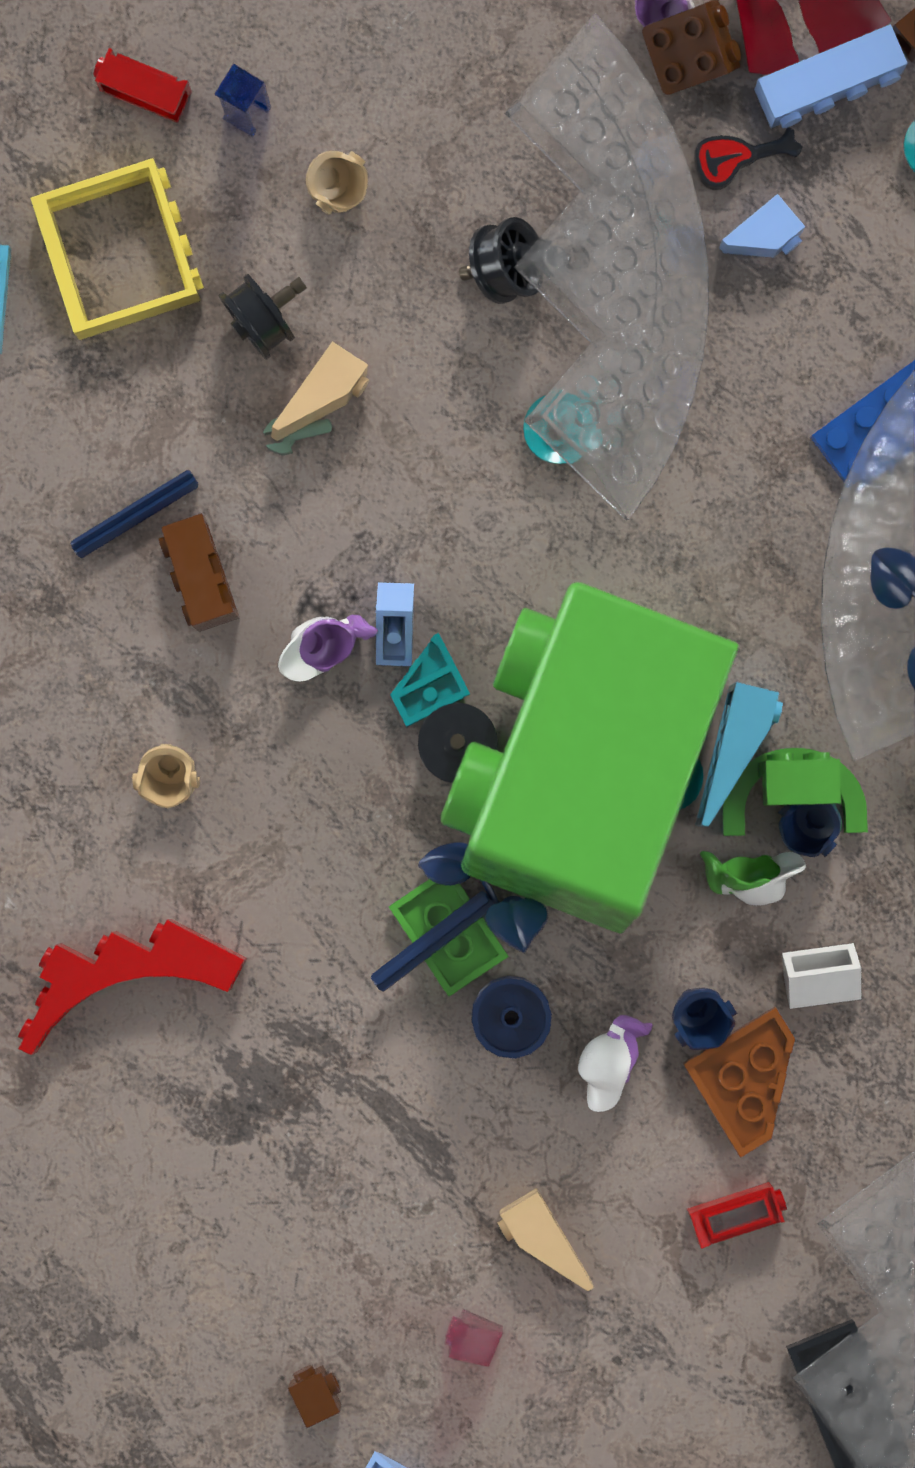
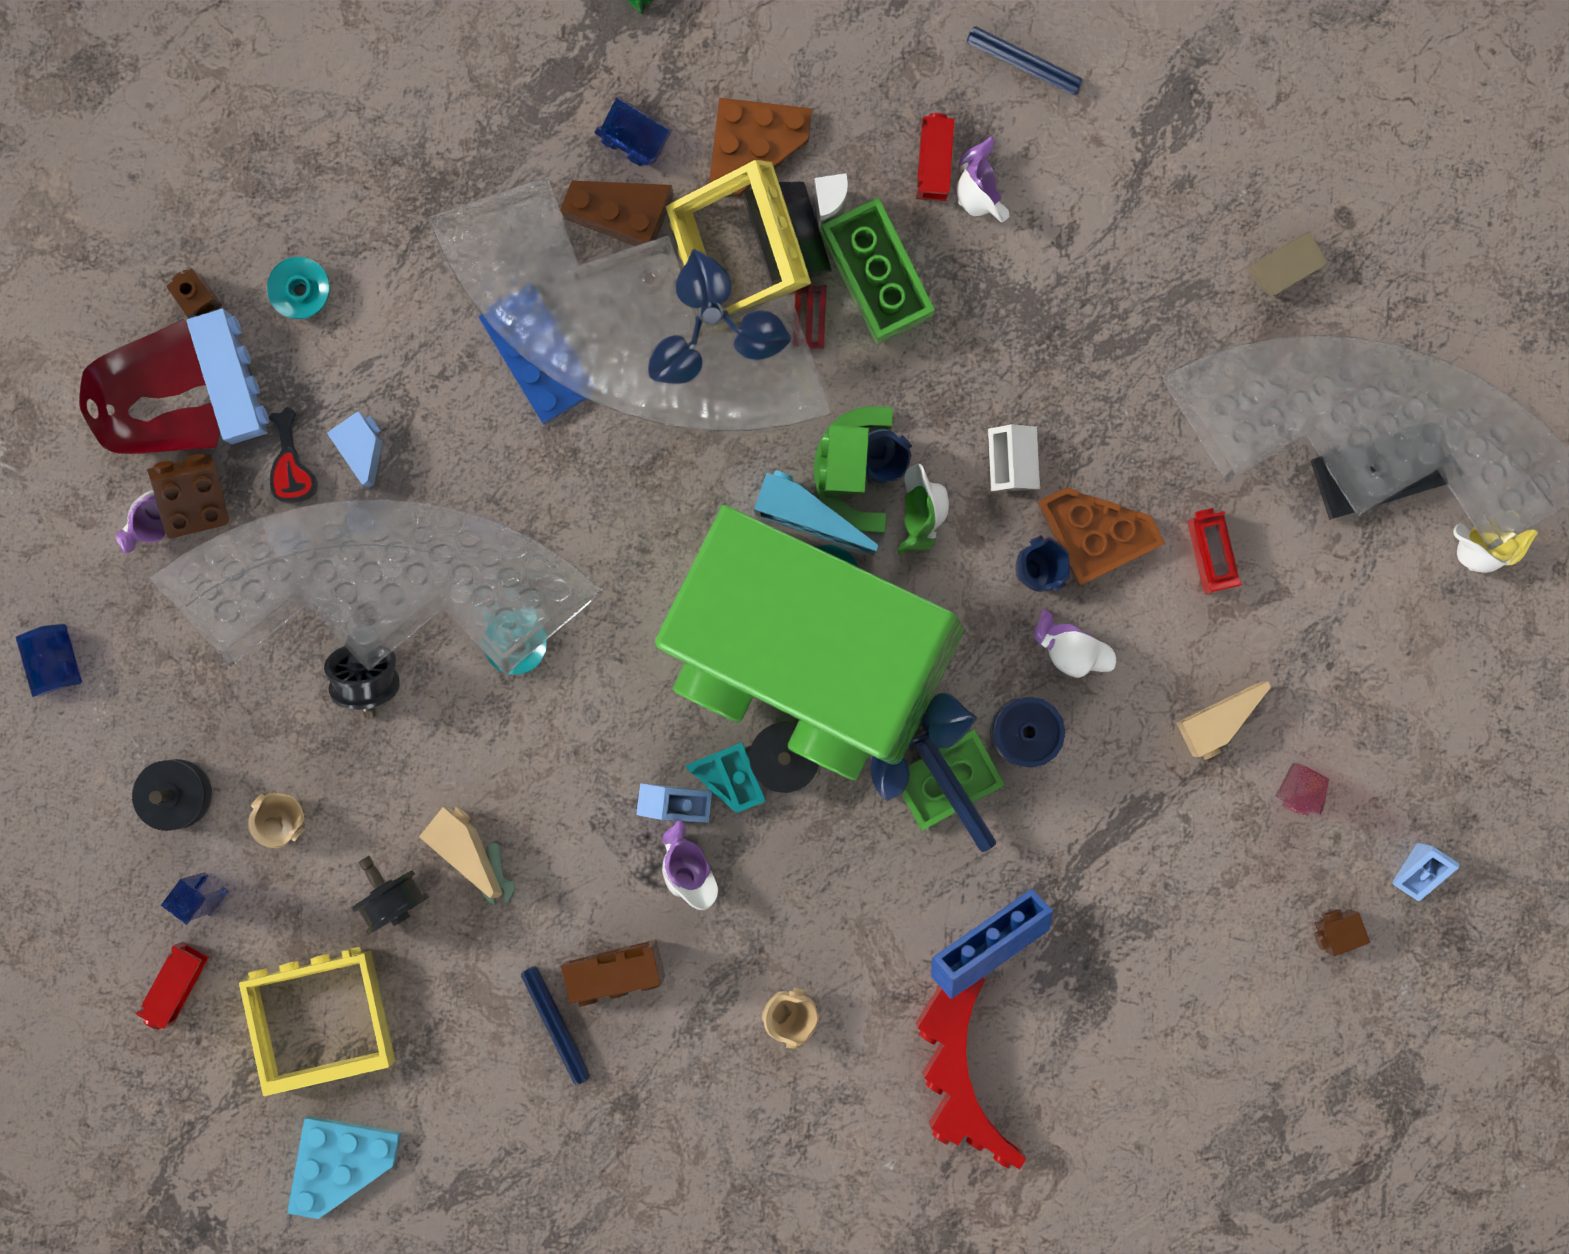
camera: 90 degrees left, 0 degrees up
(269, 994) = (991, 943): none -> blue brick
(355, 63) = (171, 794): none -> black wheel

